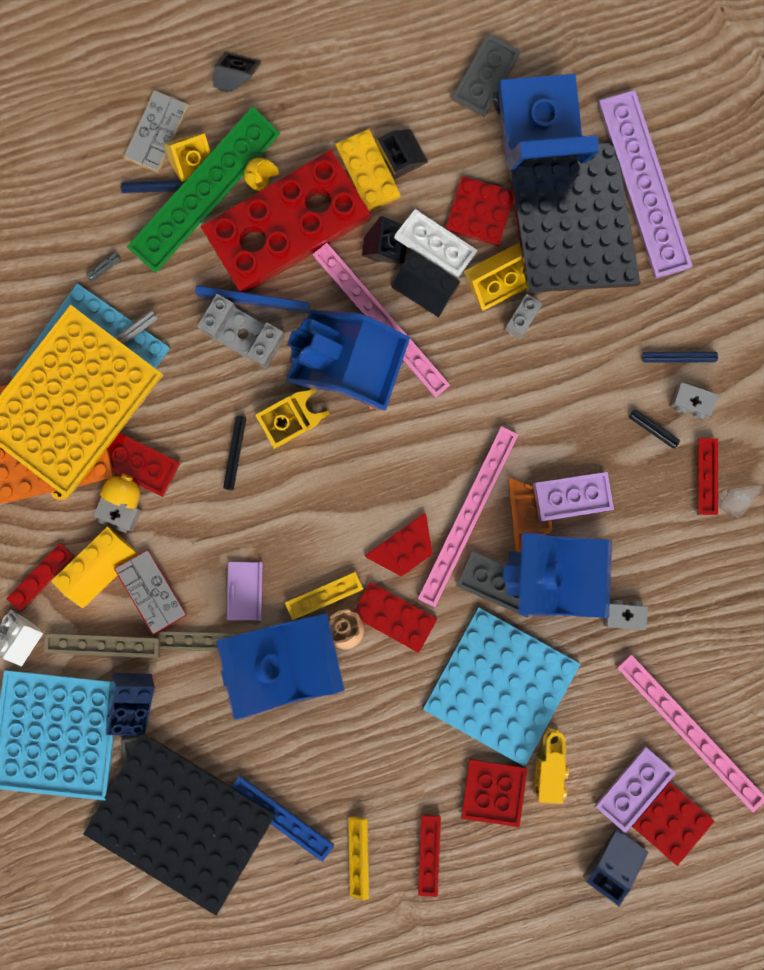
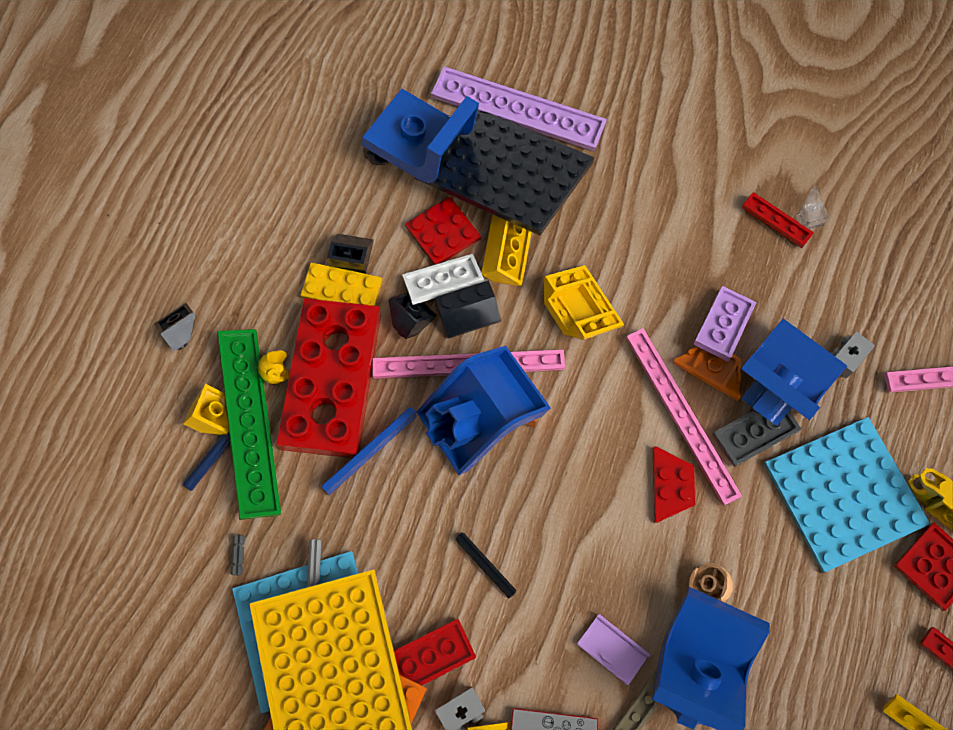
camera: 55 degrees left, 15 degrees down
(121, 491) = (445, 689): yellow cylinder -> none
(157, 126) = (165, 425): light grey tile -> none
(225, 321) = (370, 486): light grey plate -> none
(295, 414) = (496, 489): yellow brick -> none
(323, 596) = (666, 582): yellow plate -> none
(395, 617) = (726, 536): red plate -> none
(489, 66) = (345, 154): dark grey plate -> none
(500, 369) = (579, 304): none -> yellow slope
(523, 316) = (551, 255): light grey brick -> none
(654, 429) = (712, 230): black axle -> none
(679, 357) = (668, 175): dark blue axle -> none
(704, 401) = (710, 188): light grey brick -> none

